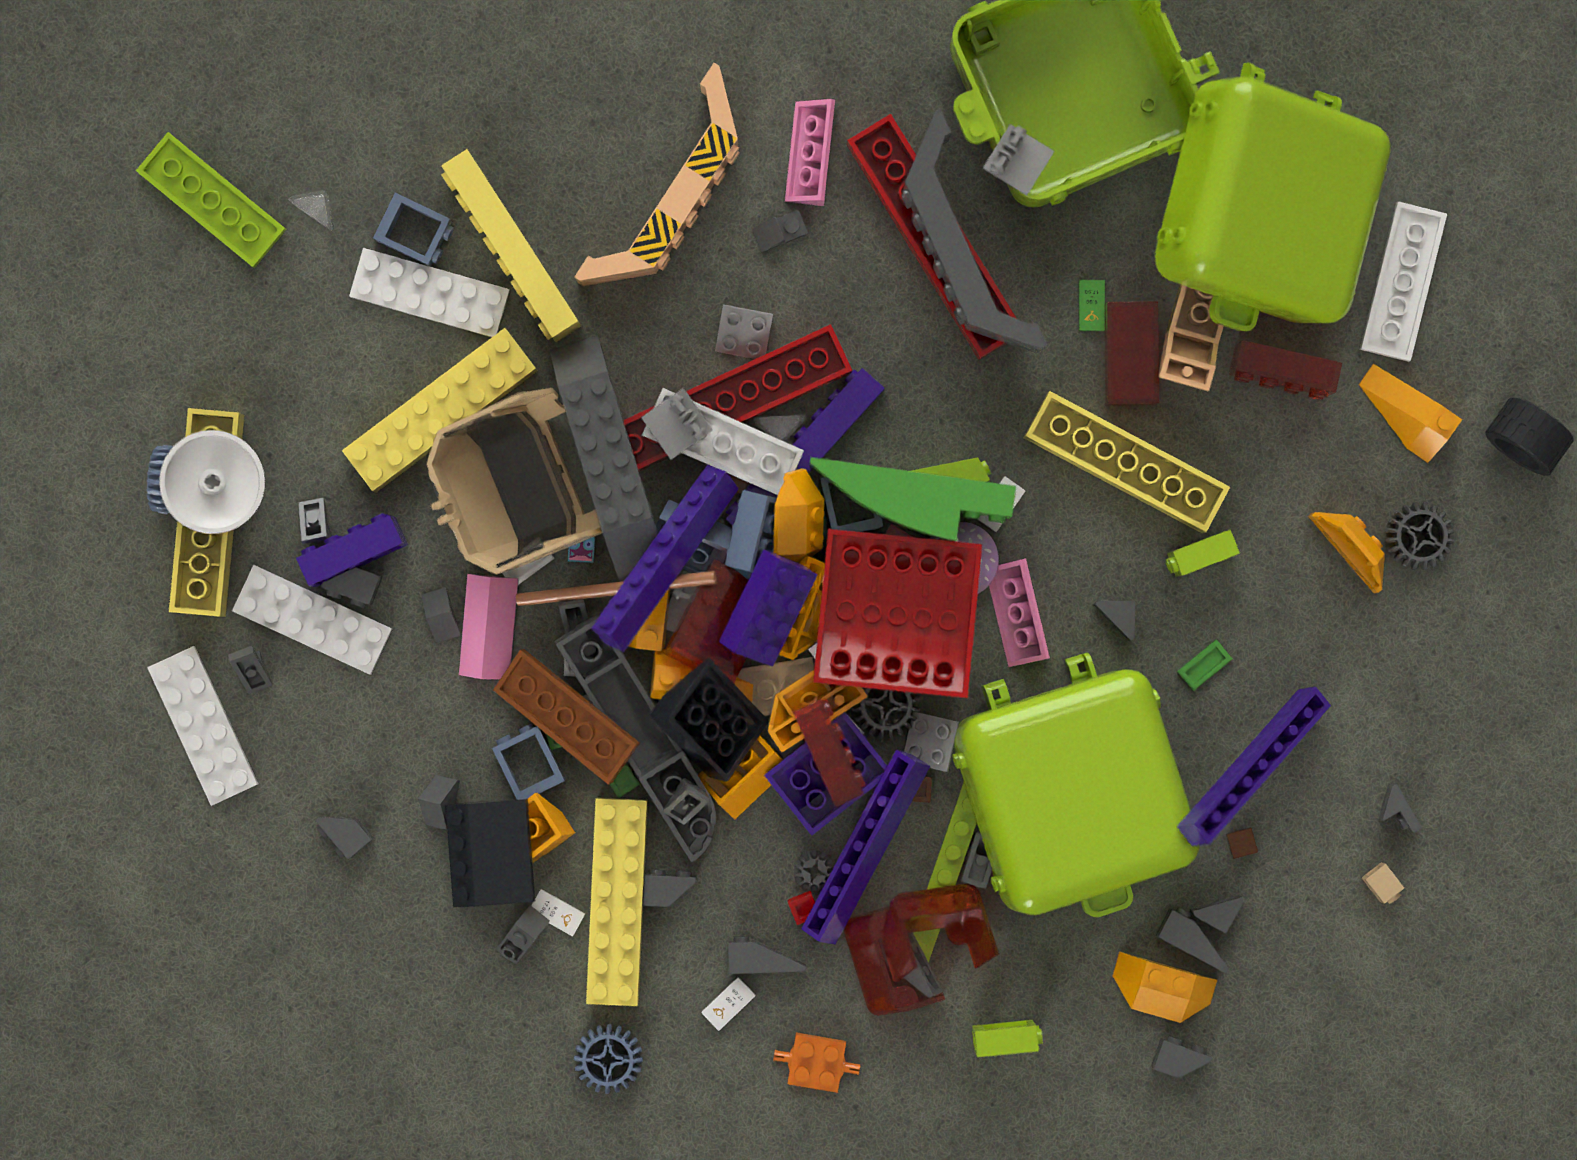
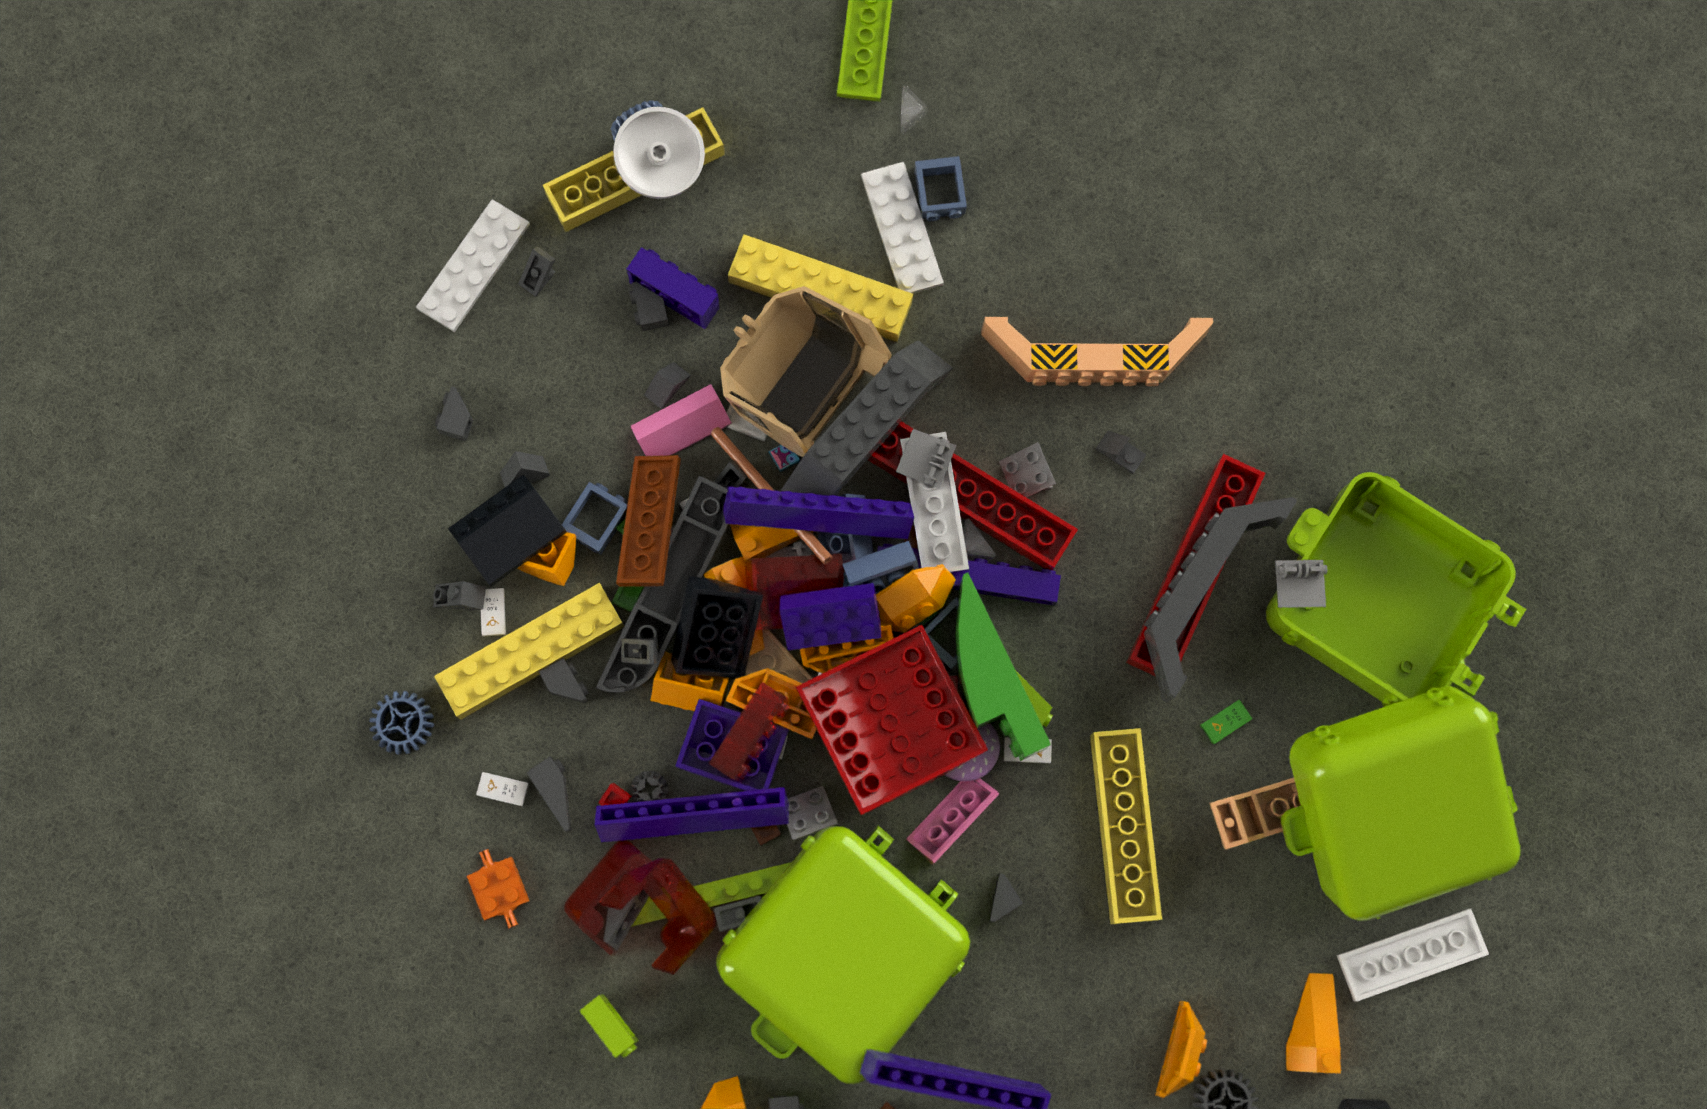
camera: 55 degrees right, 10 degrees down
(312, 619) = (603, 295): white plate -> none
(313, 521) = (678, 248): slope -> none
(507, 241) = (975, 261): light yellow brick -> none
(810, 152) = (1195, 436): bright pink slope -> none
(882, 726) = (823, 779): dark grey gear -> none
(1131, 353) = (1211, 775): clear red brick -> none
(1202, 553) = (1095, 932): lime window -> none
(1204, 665) = (1009, 994): bright green tile -> none
(1285, 369) = (1281, 903): clear red brick -> none

